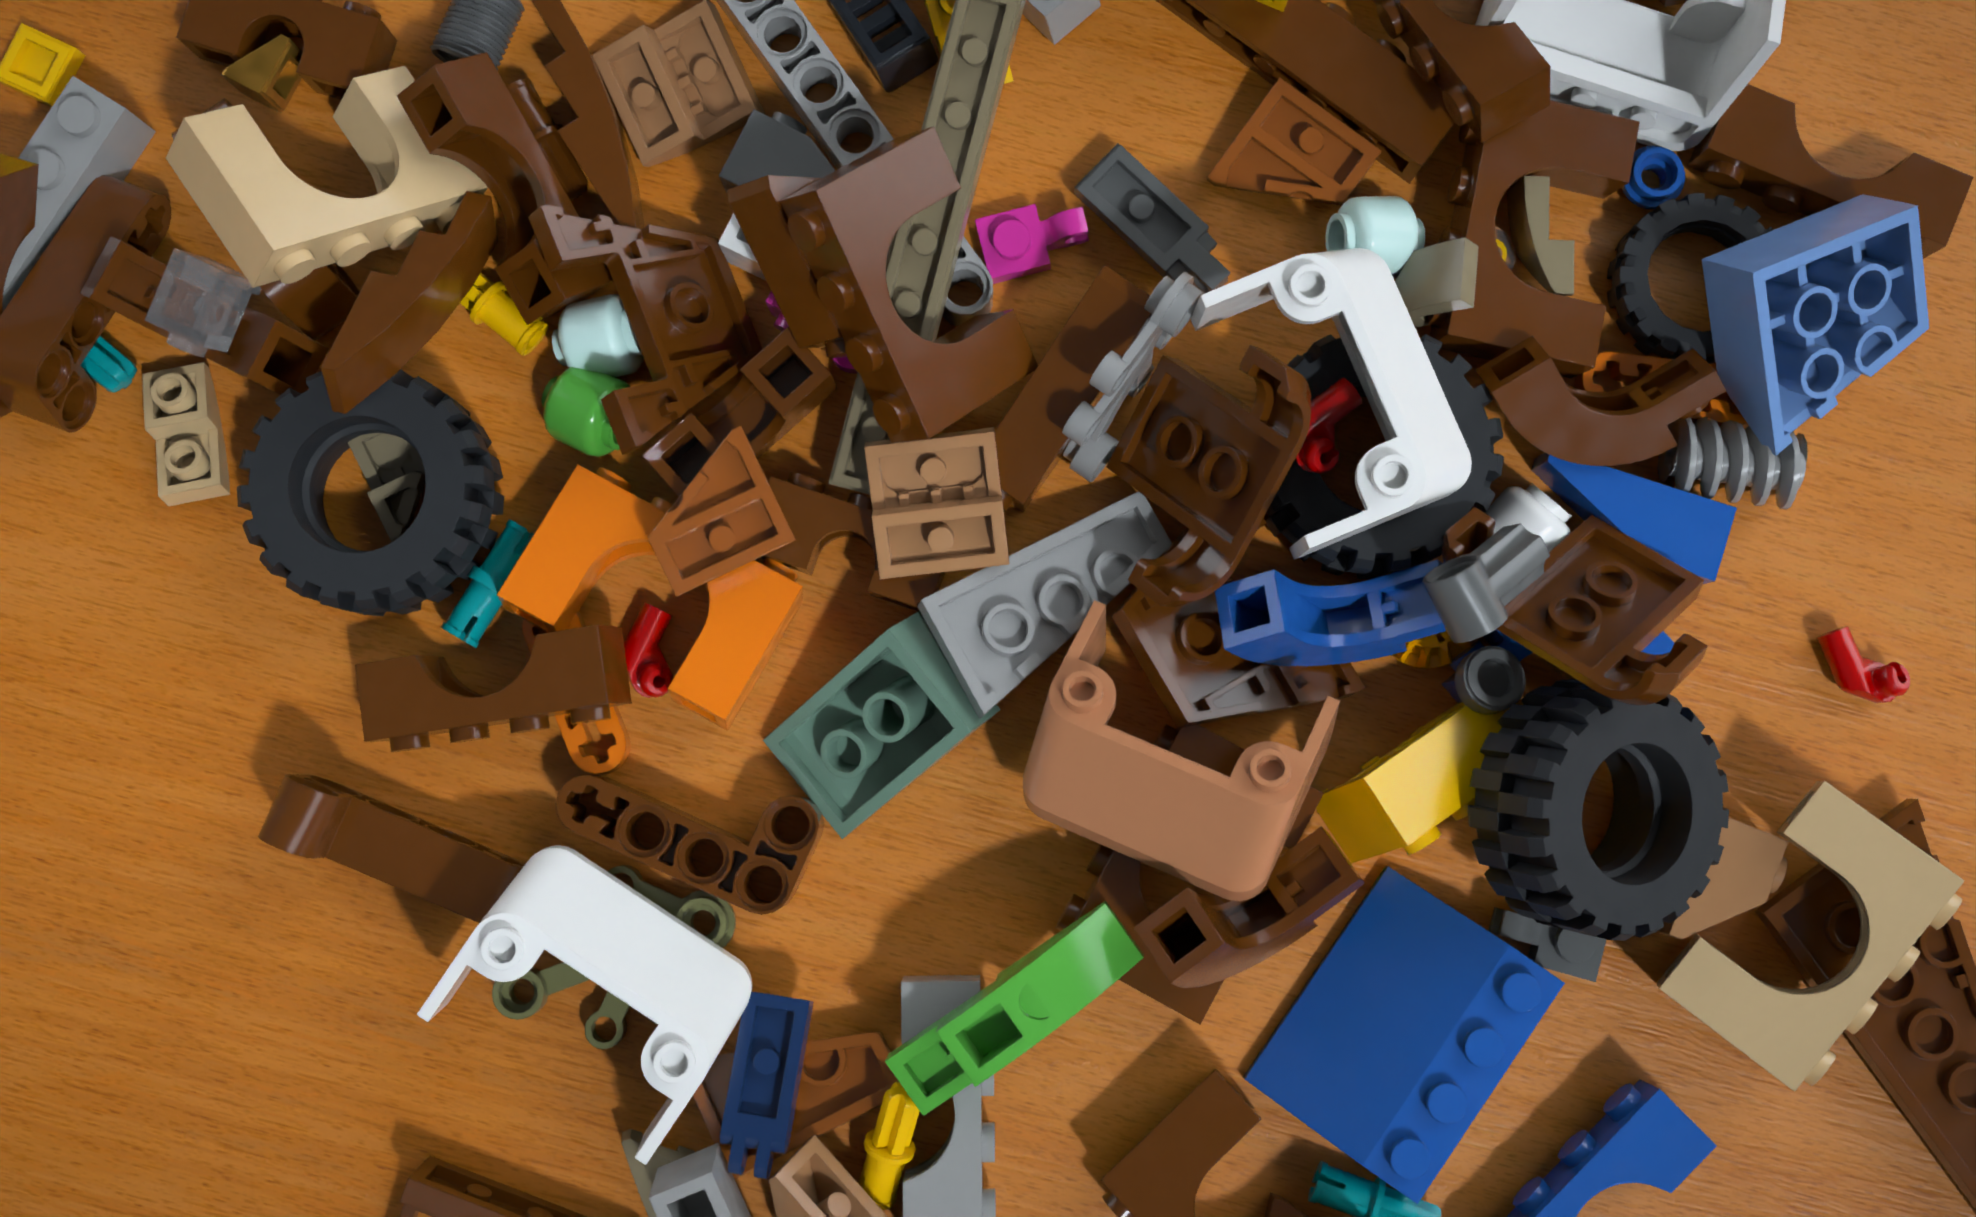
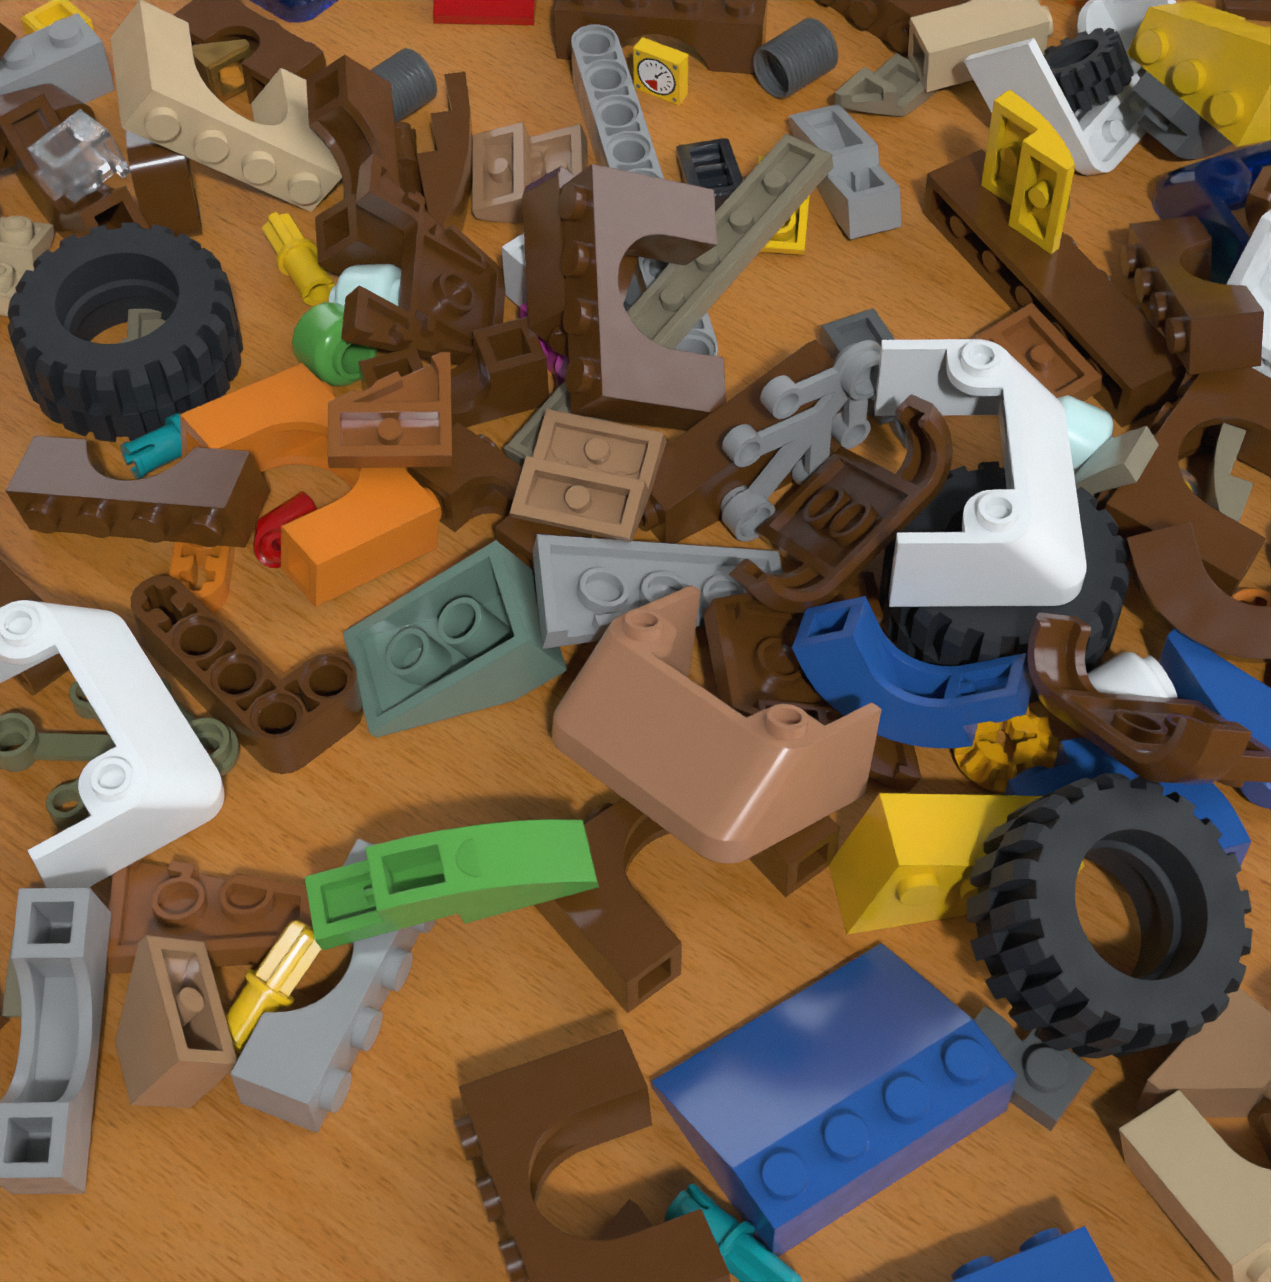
camera: 20 degrees right, 30 degrees down
(406, 310) = (231, 203): reddish brown slope -> none
(765, 1080) = (186, 874): dark blue hinge -> none
(1018, 242) = (756, 350): dark pink plate -> none
(1213, 938) = (709, 906): reddish brown arch -> none
(1327, 409) = (947, 508): red arm -> none
(1477, 586) = (1051, 654): dark grey piece -> none
(1490, 680) = (1038, 772): dark grey tile -> none

